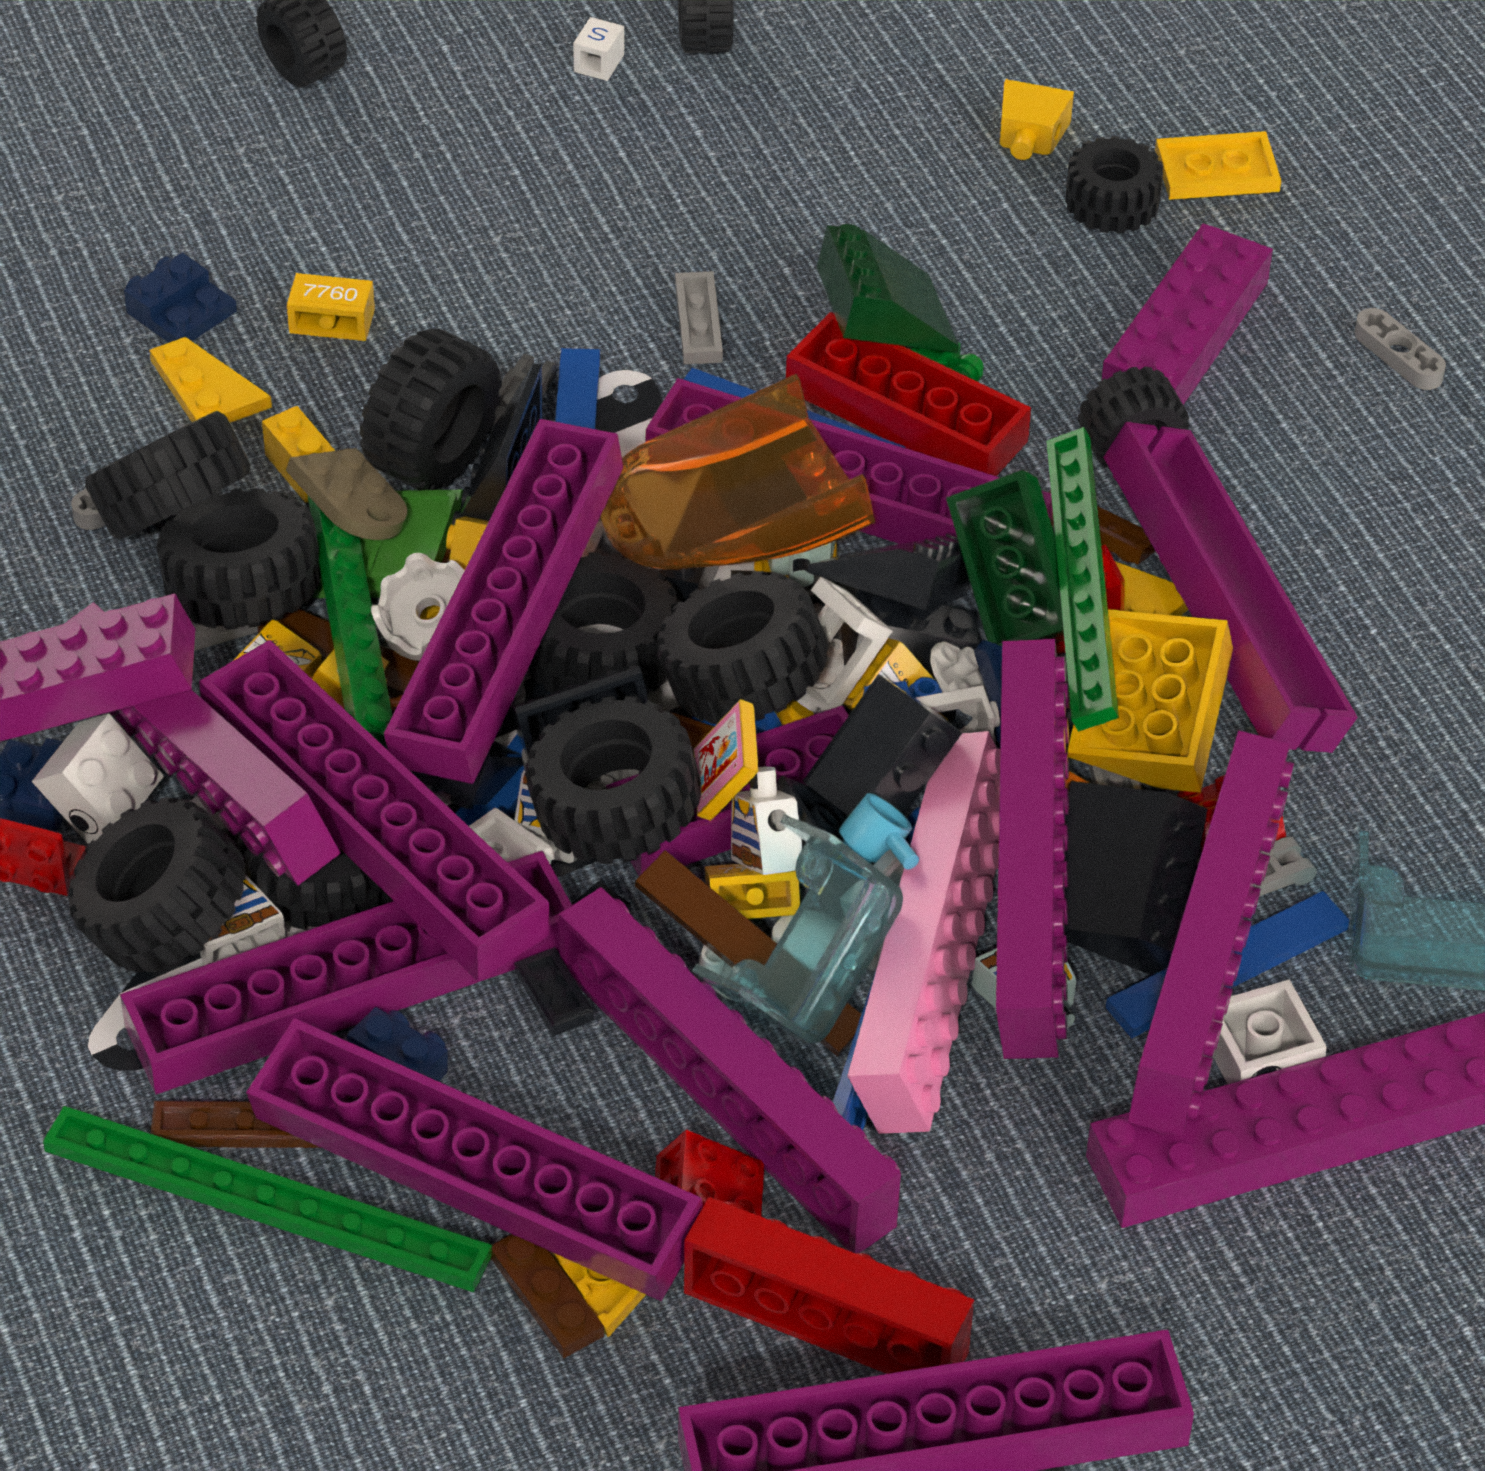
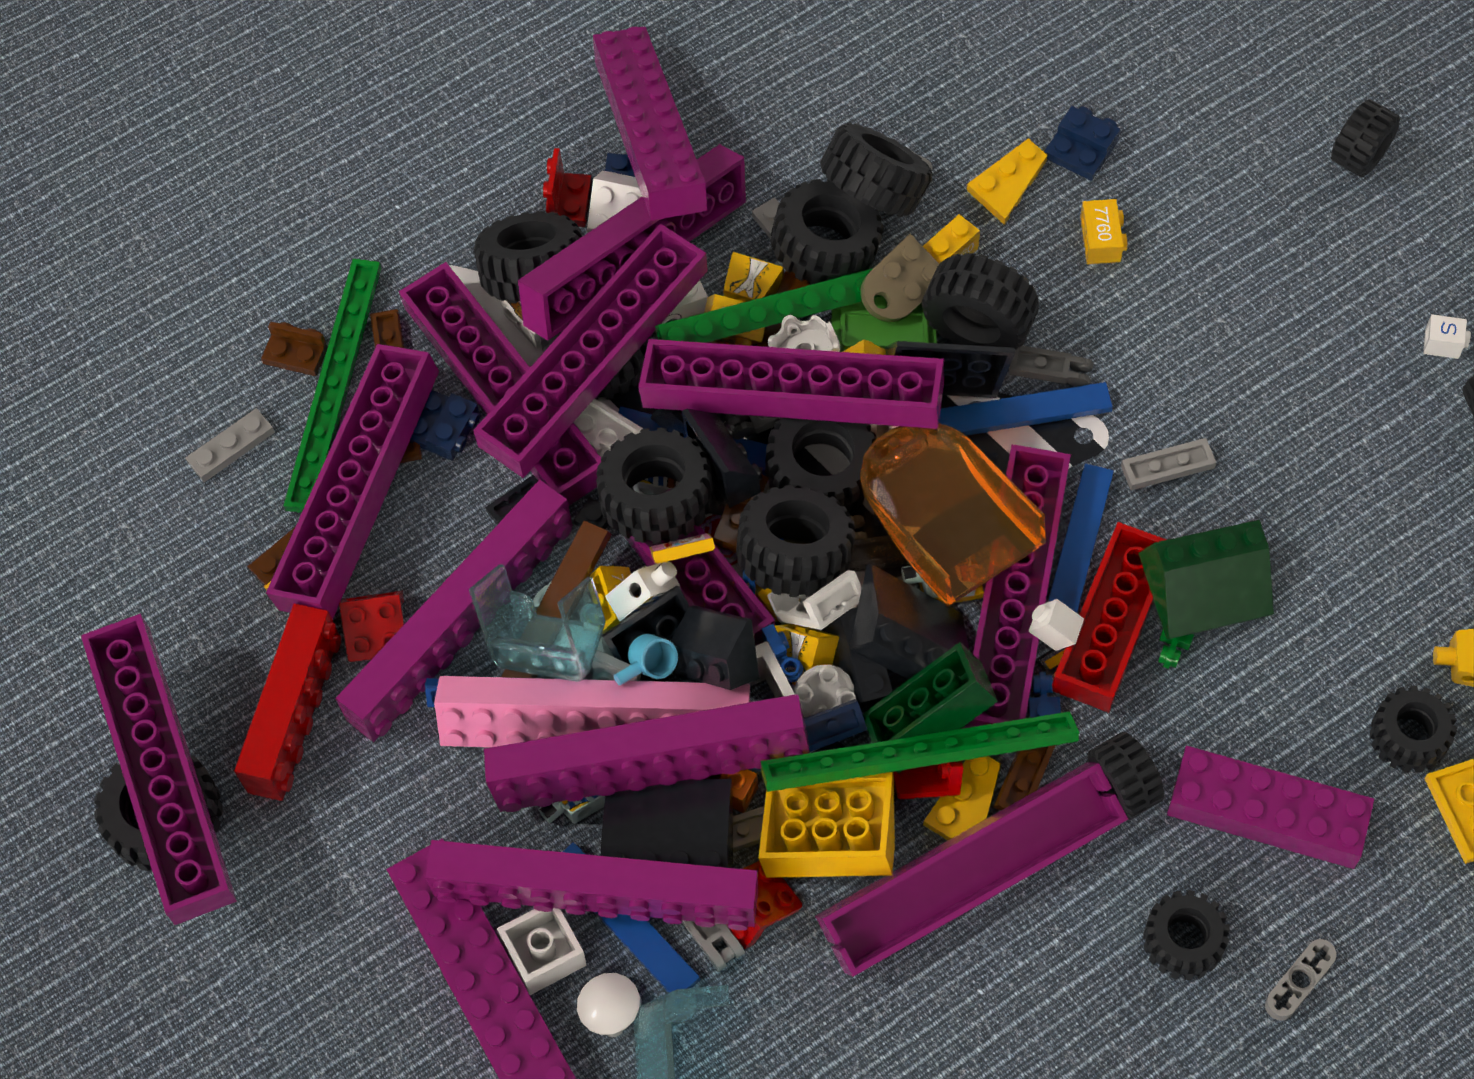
camera: 85 degrees right, 15 degrees up
(179, 1246) = (294, 348): none -> reddish brown bracket
(328, 1358) = (230, 445): none -> light grey plate
(923, 431) = (1056, 624): none -> white brick
(1338, 421) = (1194, 911): none -> black tyre
(1347, 993) = (608, 1004): none -> white dish

